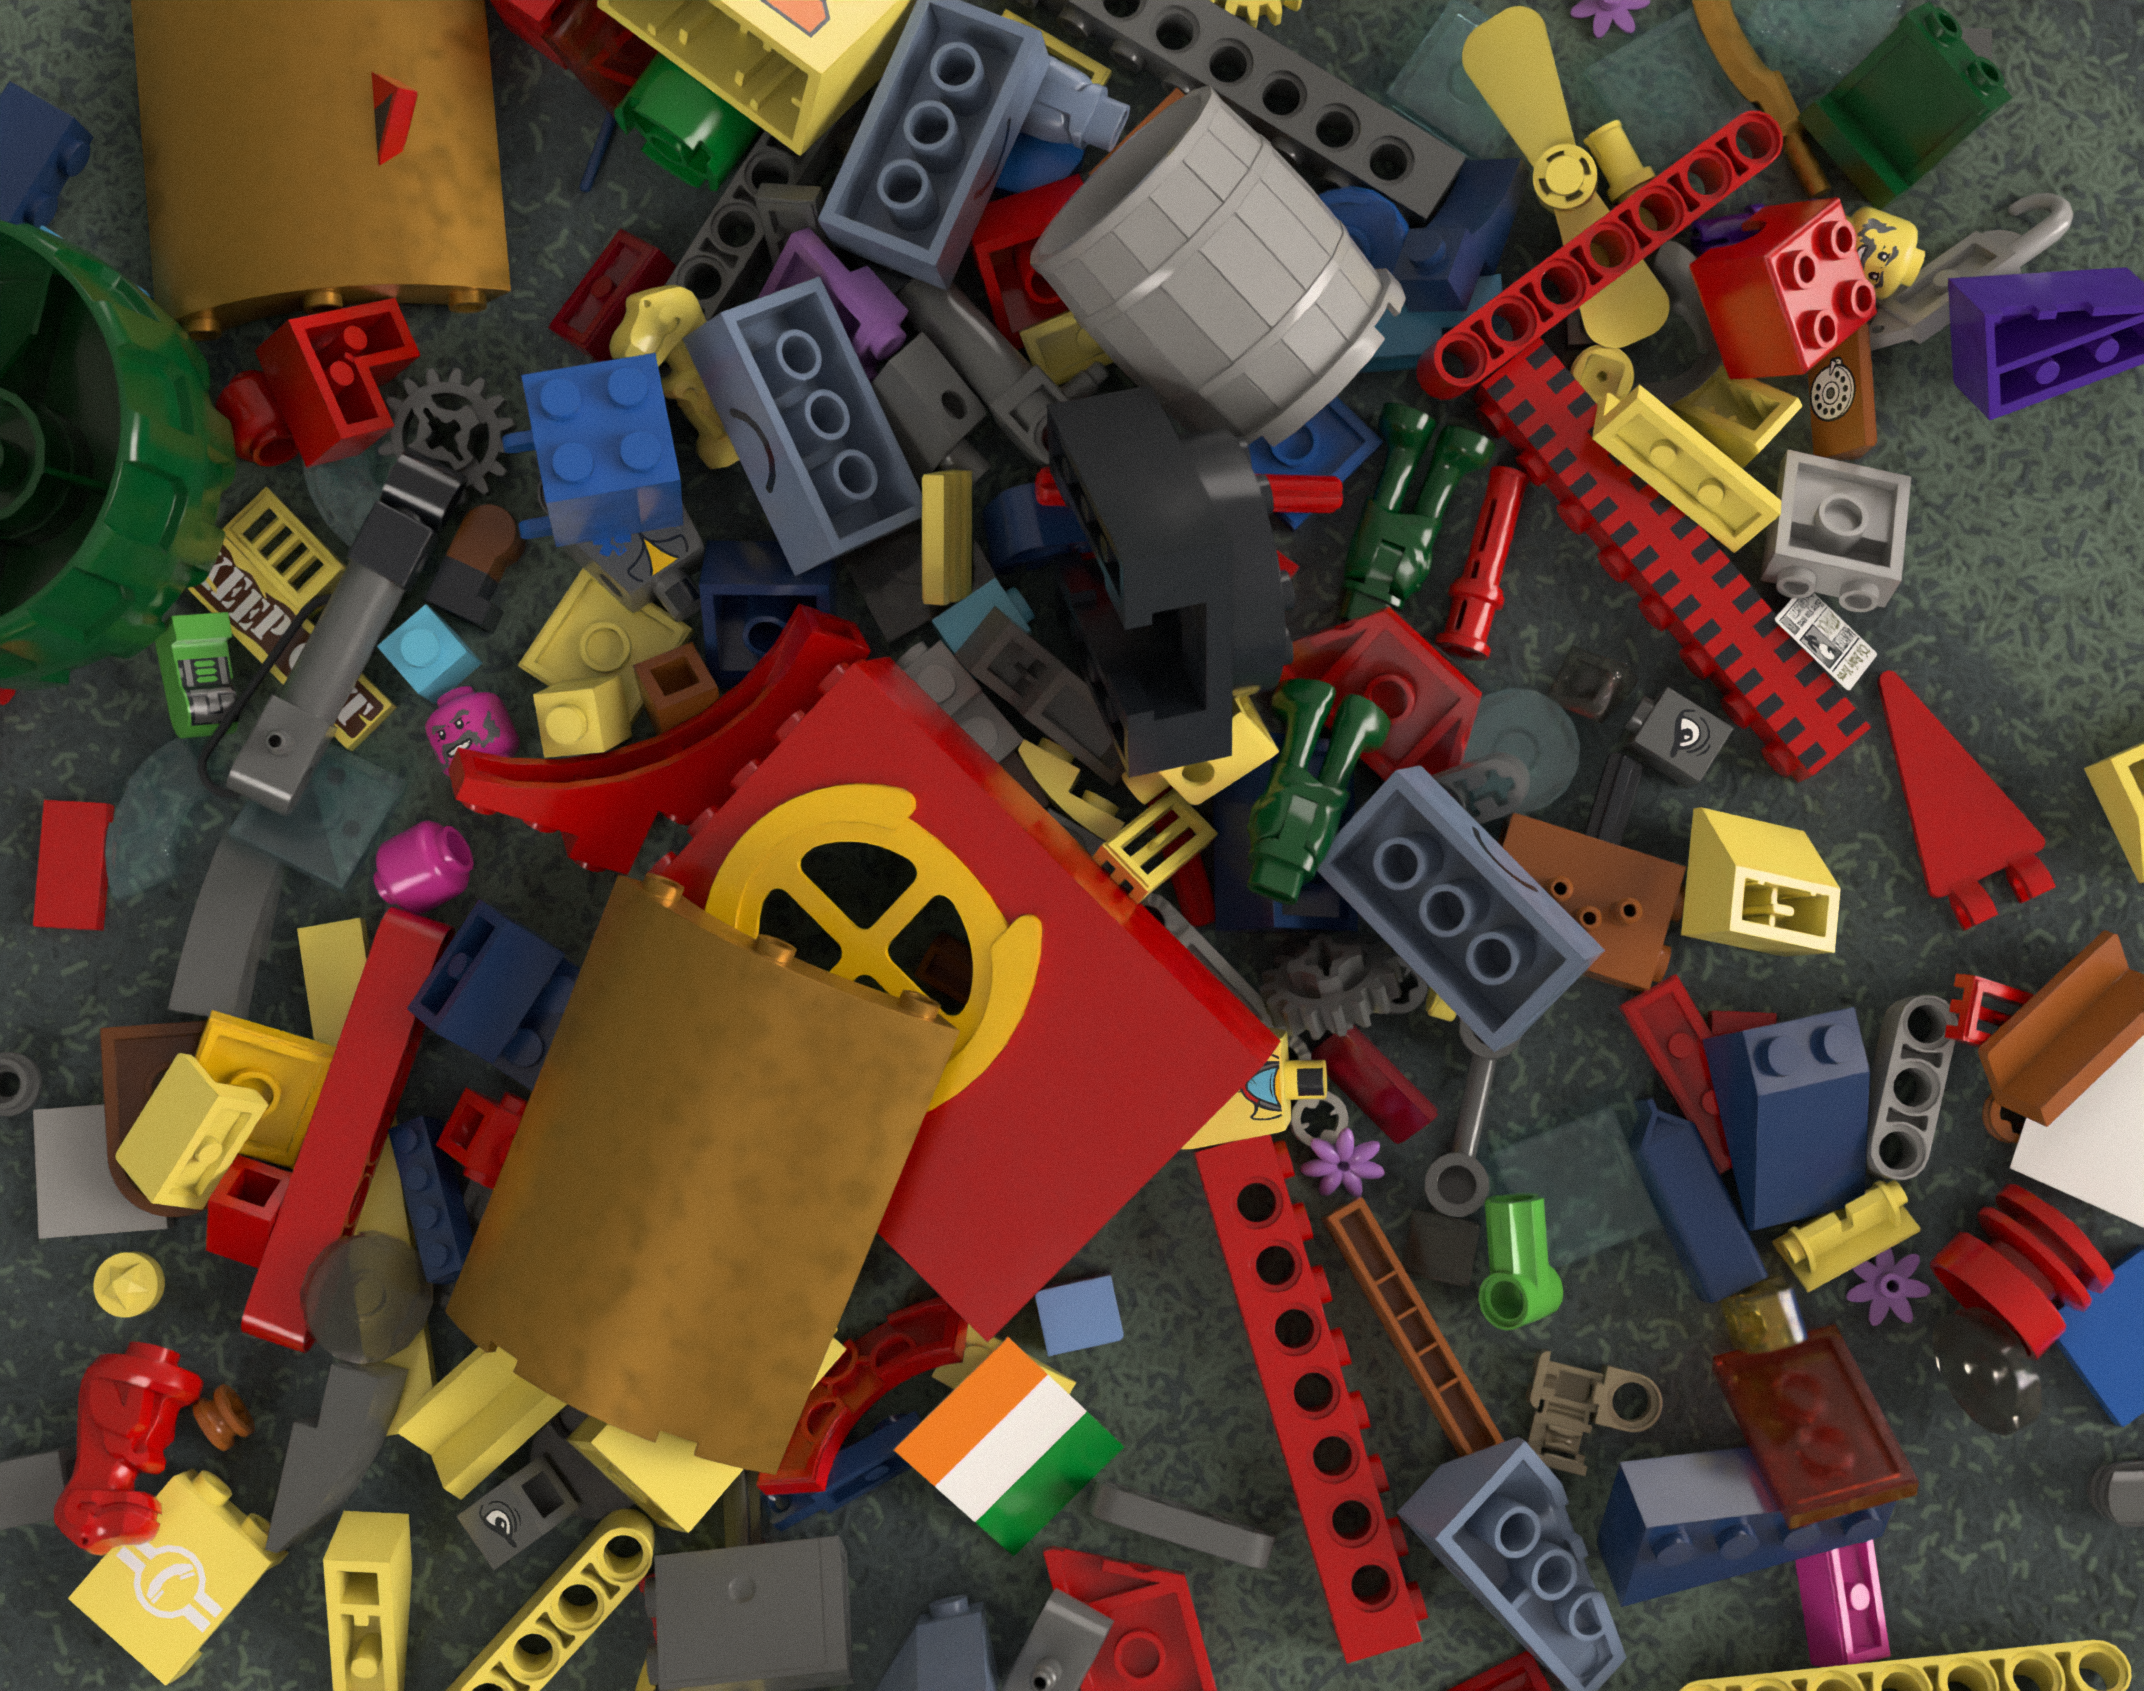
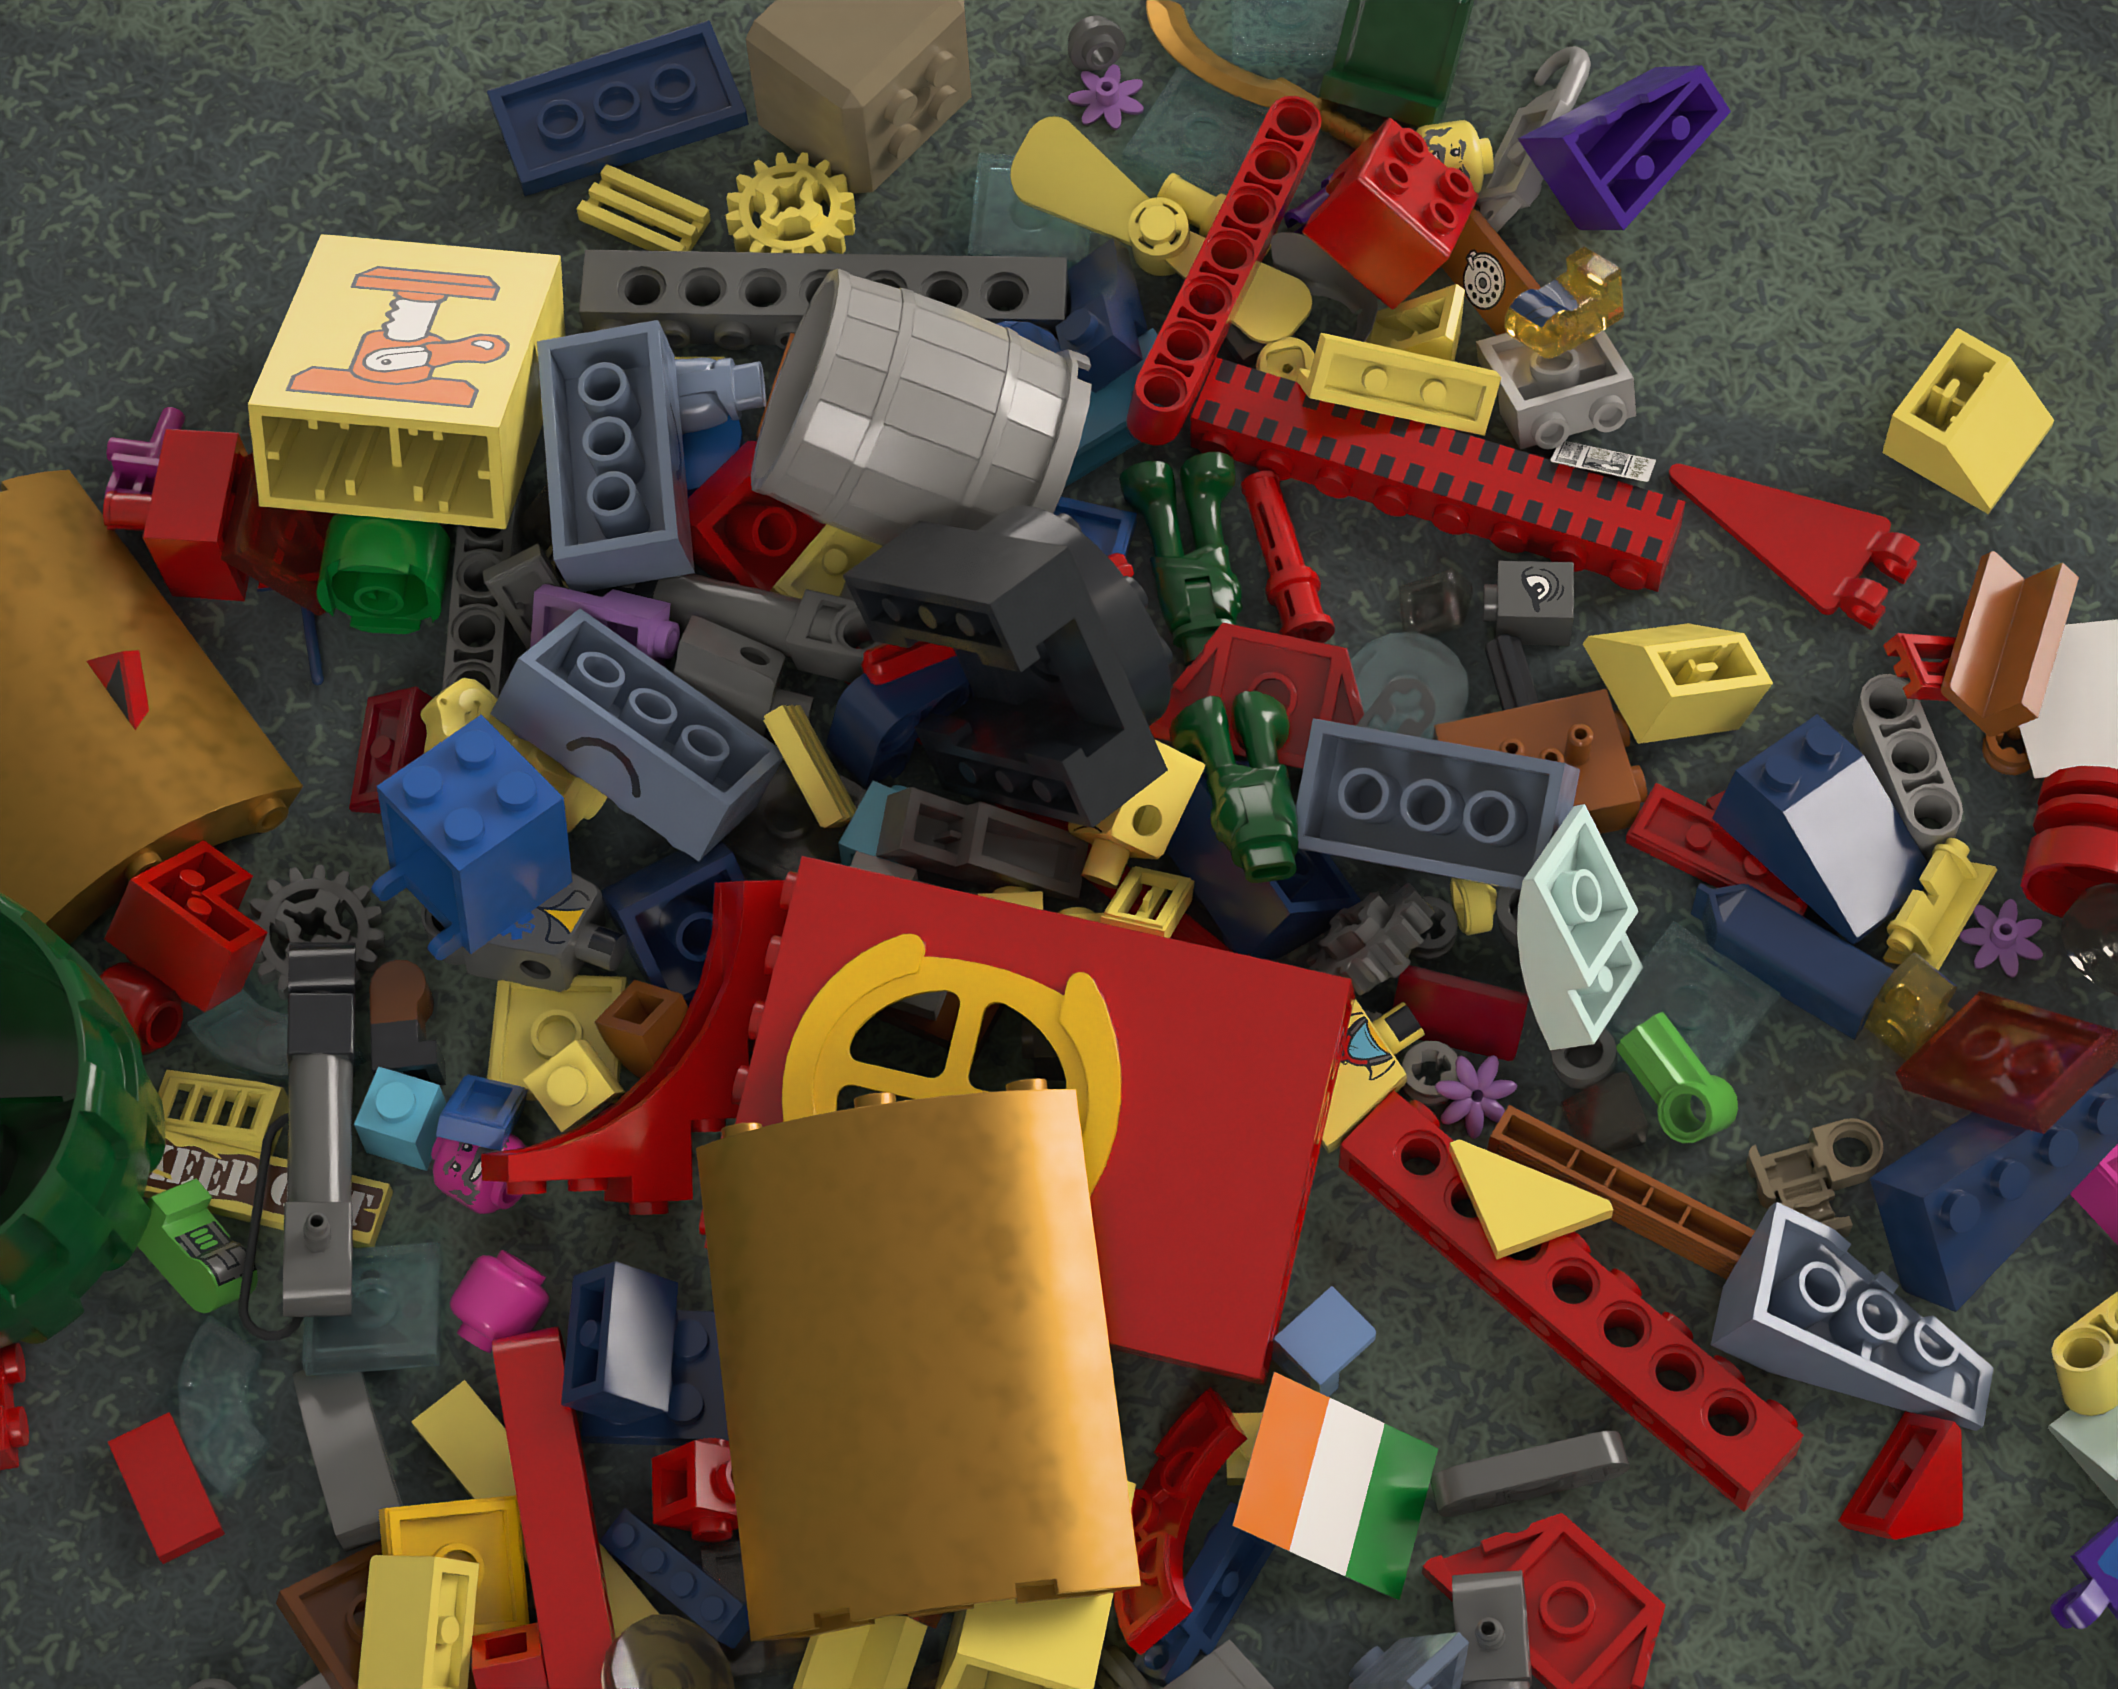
camera: 30 degrees left, 20 degrees down
(488, 698) = (482, 1112): none -> blue tile
(1310, 1304) = (1521, 1204): none -> light yellow tile
(1506, 1101) = (1575, 935): none -> light aqua slope
(1888, 472) = (1568, 307): none -> clear yellow leg

